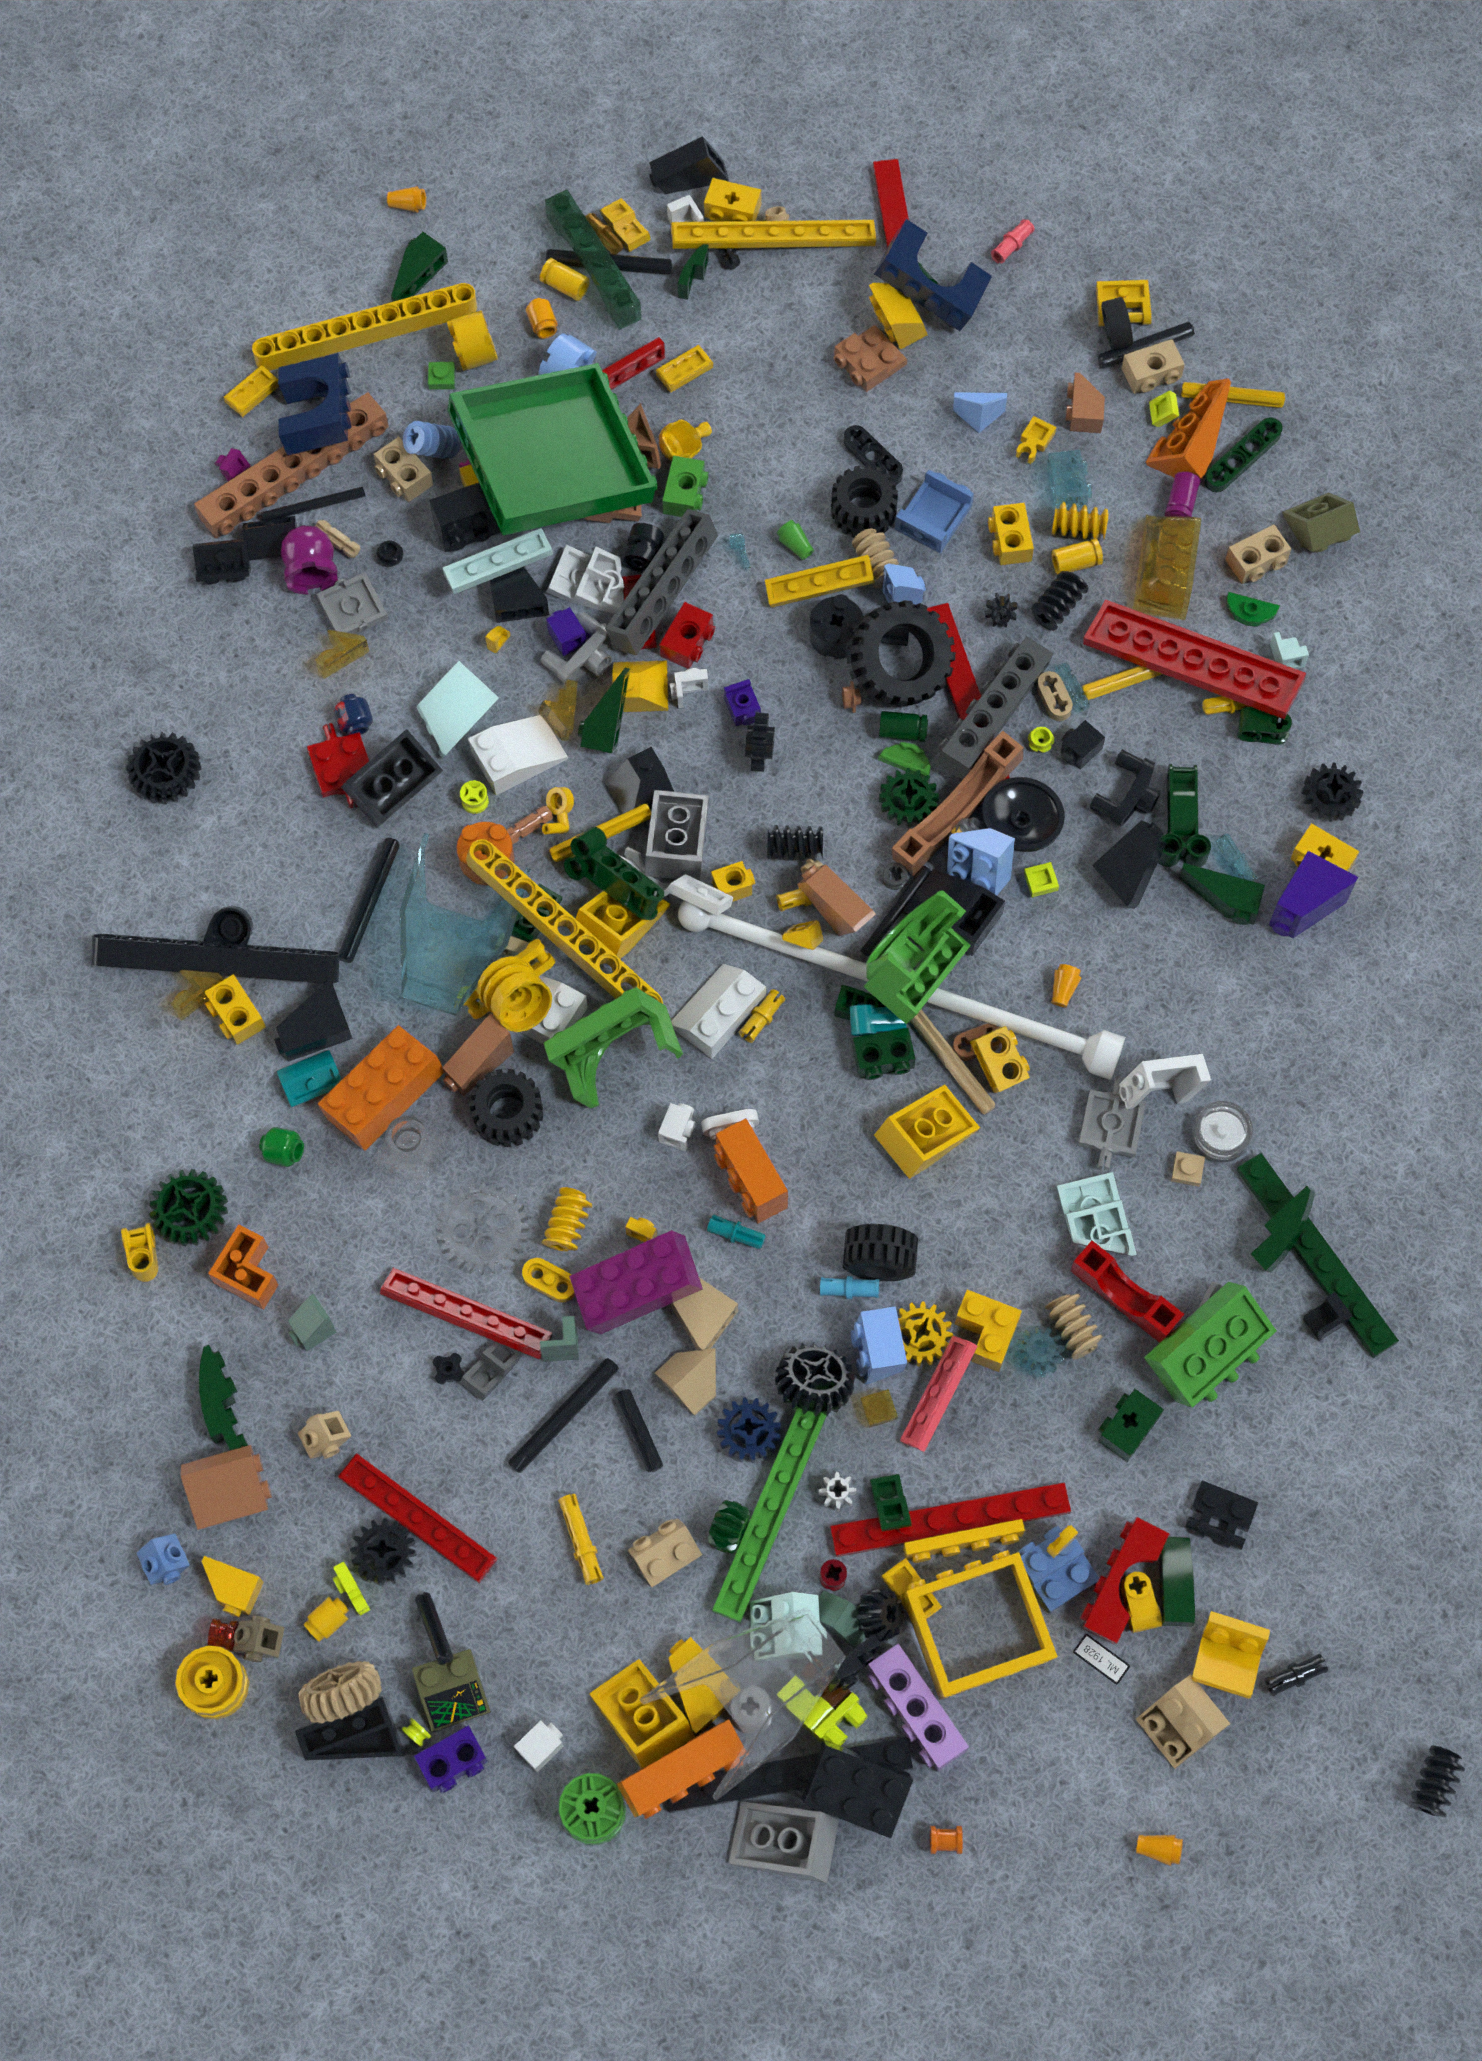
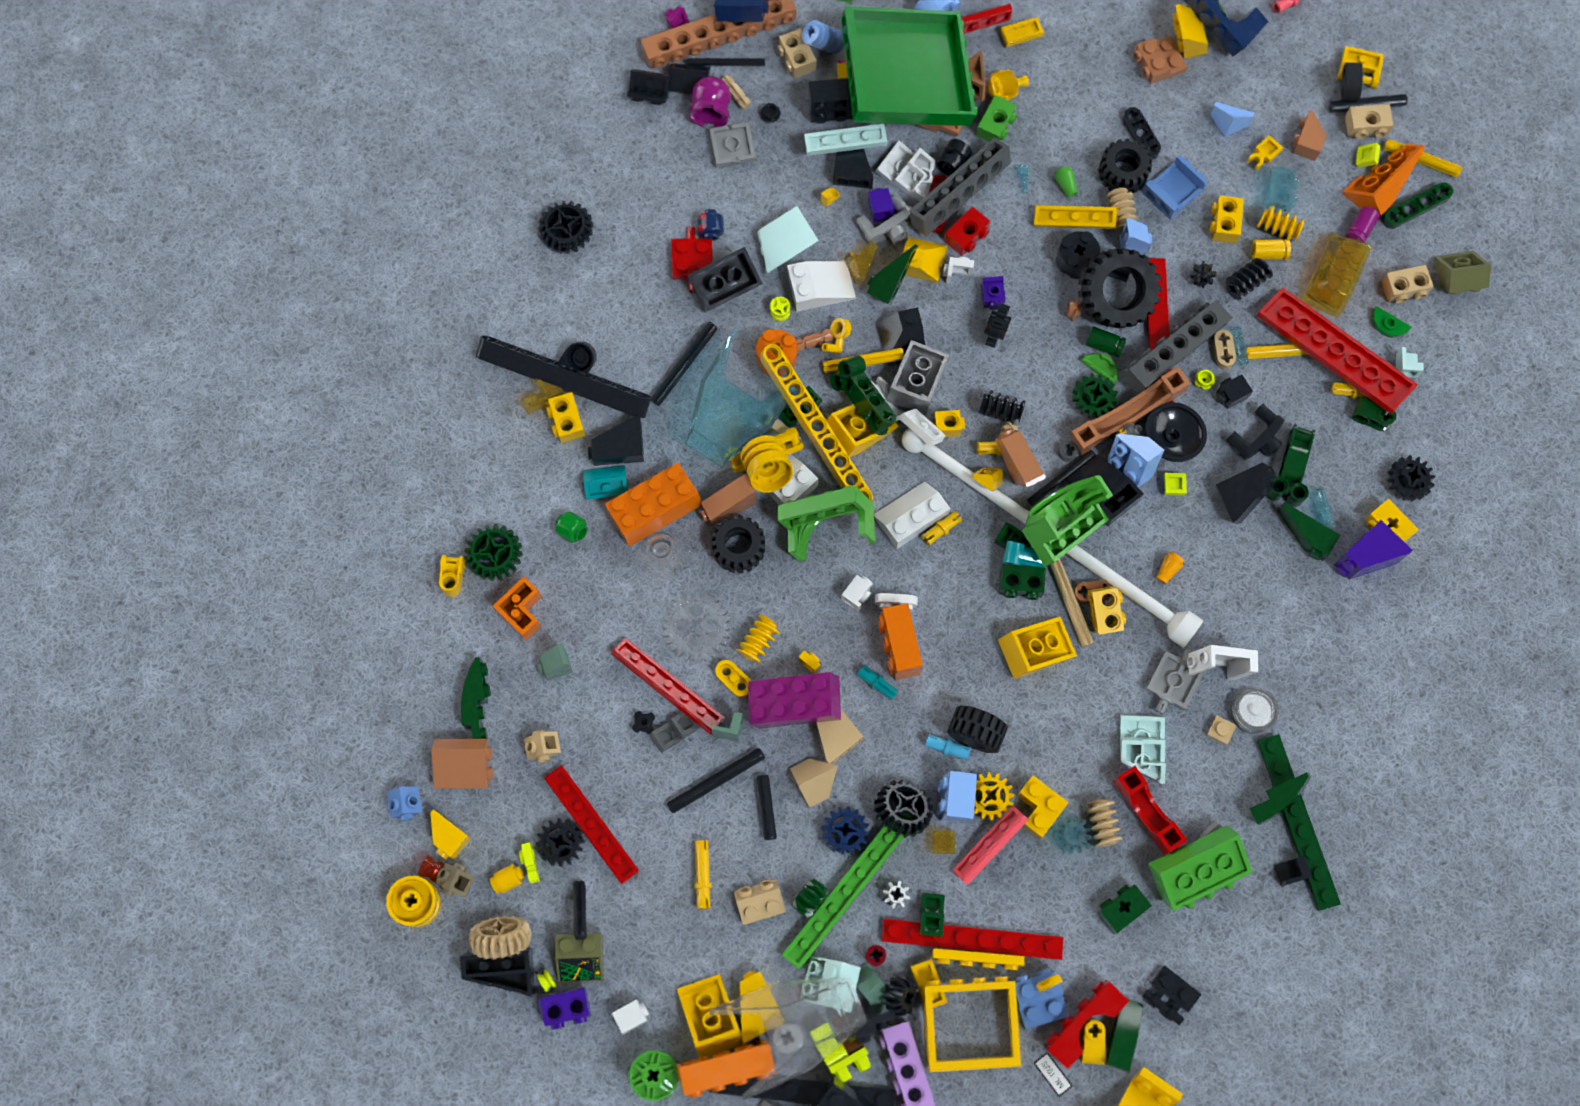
camera: 15 degrees right, 5 degrees up
(346, 650) = (720, 175): clear yellow slope -> none

